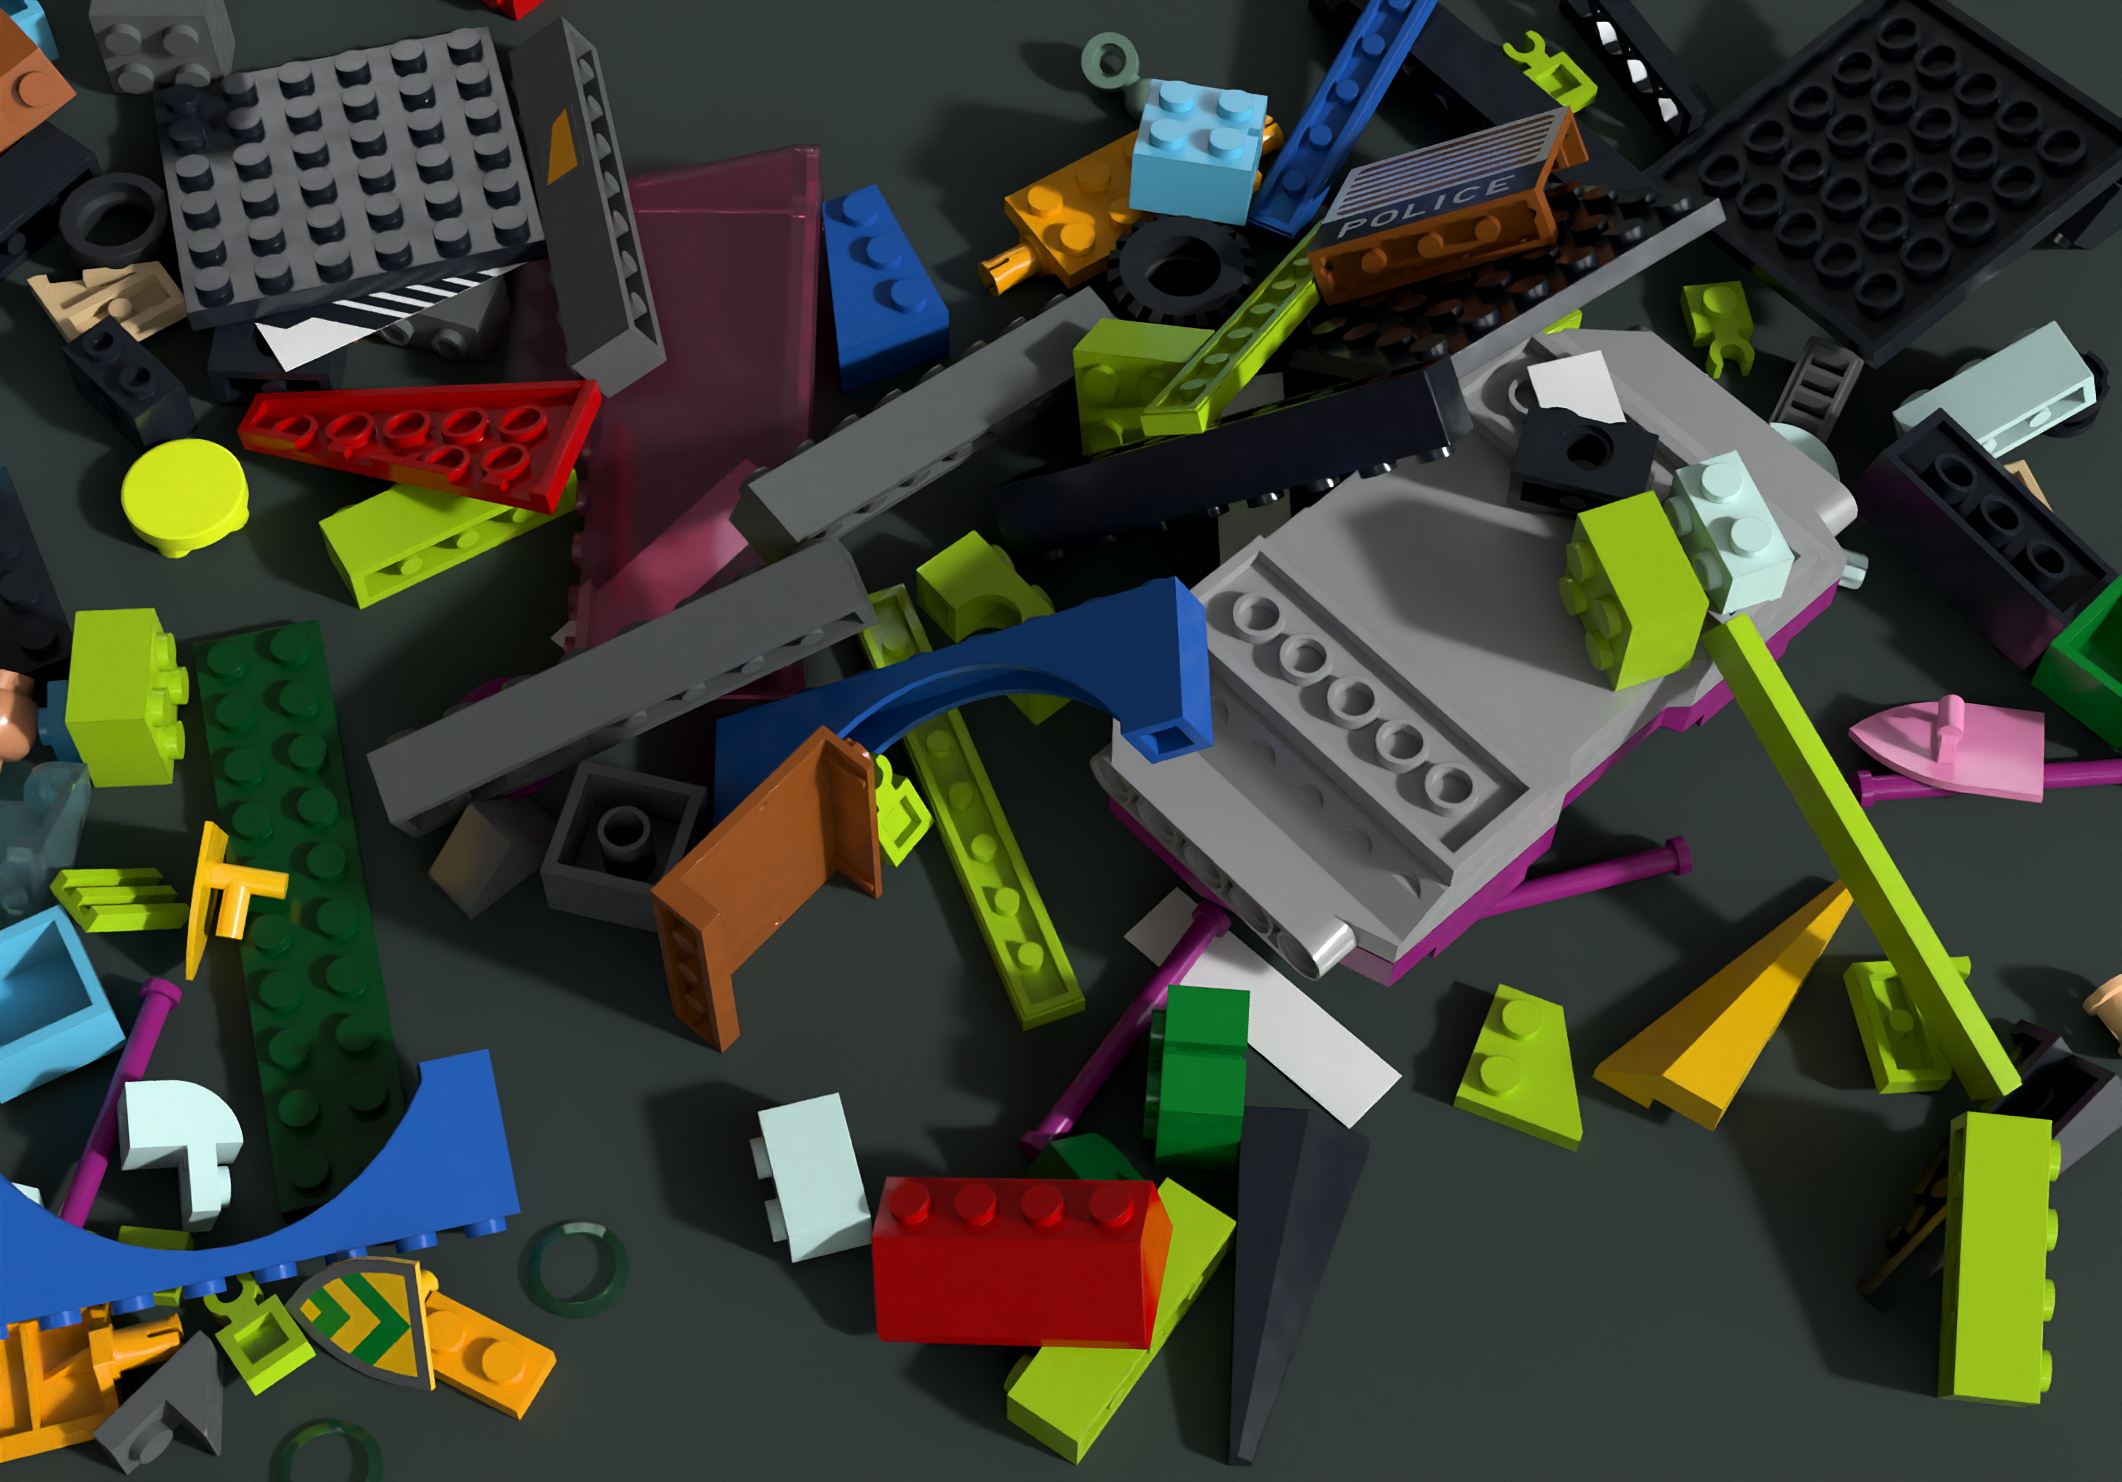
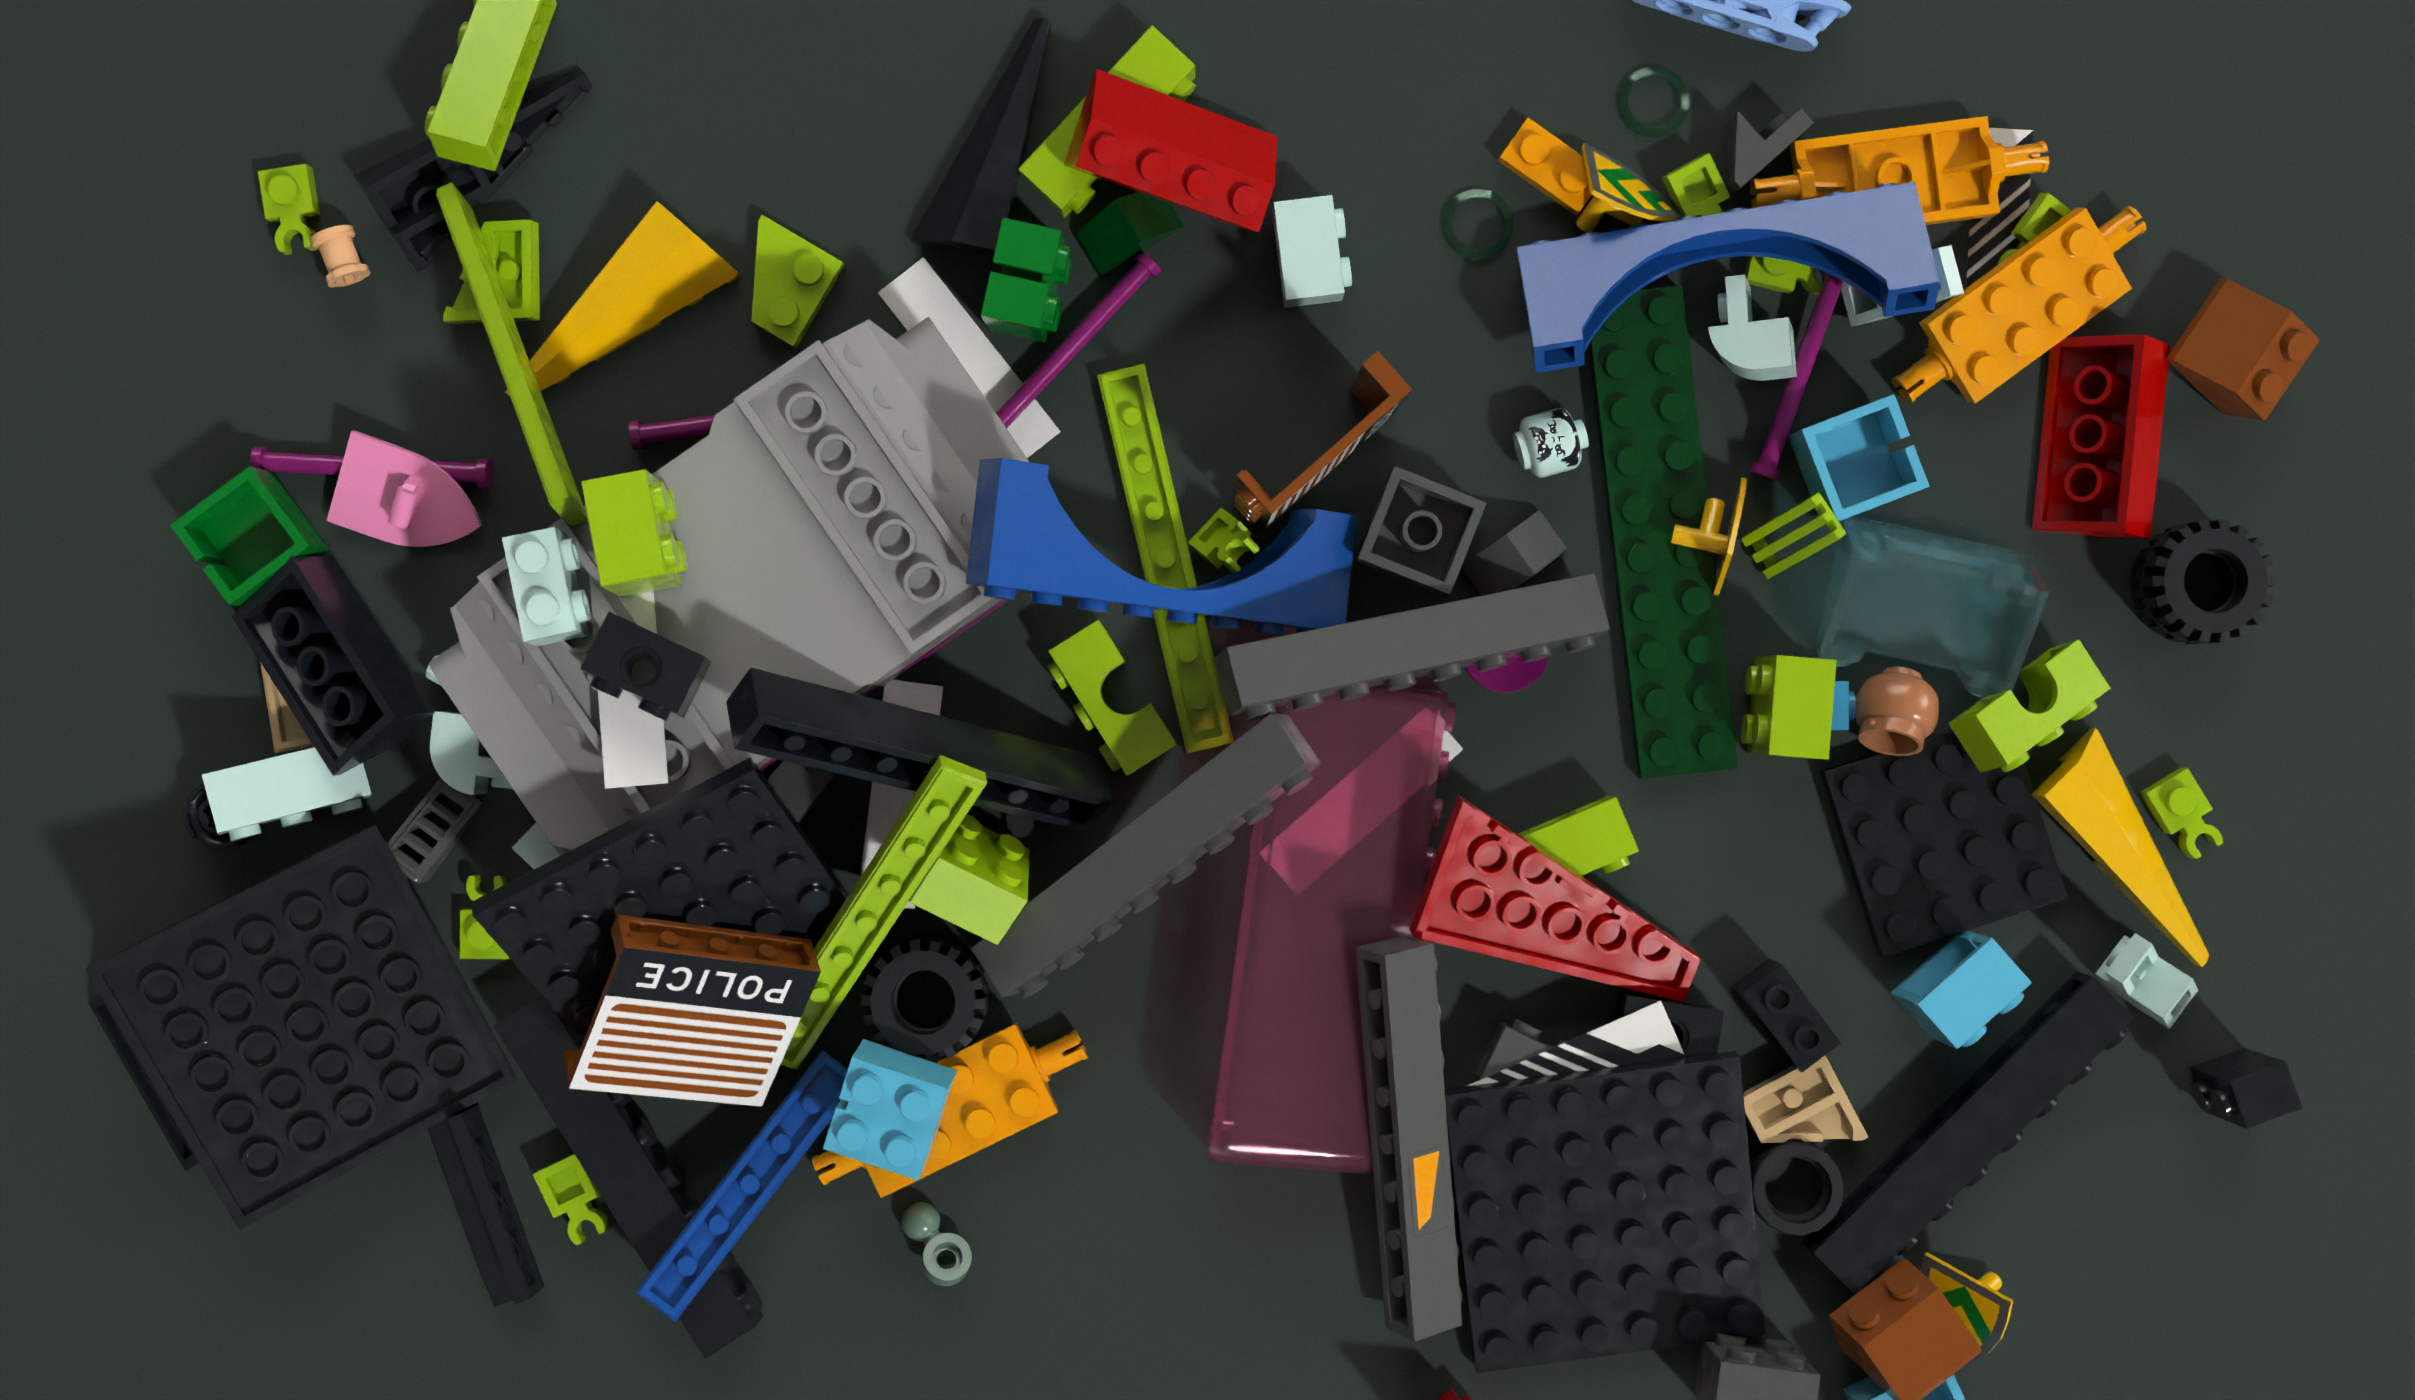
camera: 175 degrees left, 30 degrees up
(185, 496) = (1742, 910): neon yellow tile -> none
(458, 988) = (1550, 442): none -> light aqua head
(879, 293) = (1175, 1034): blue wedge -> none

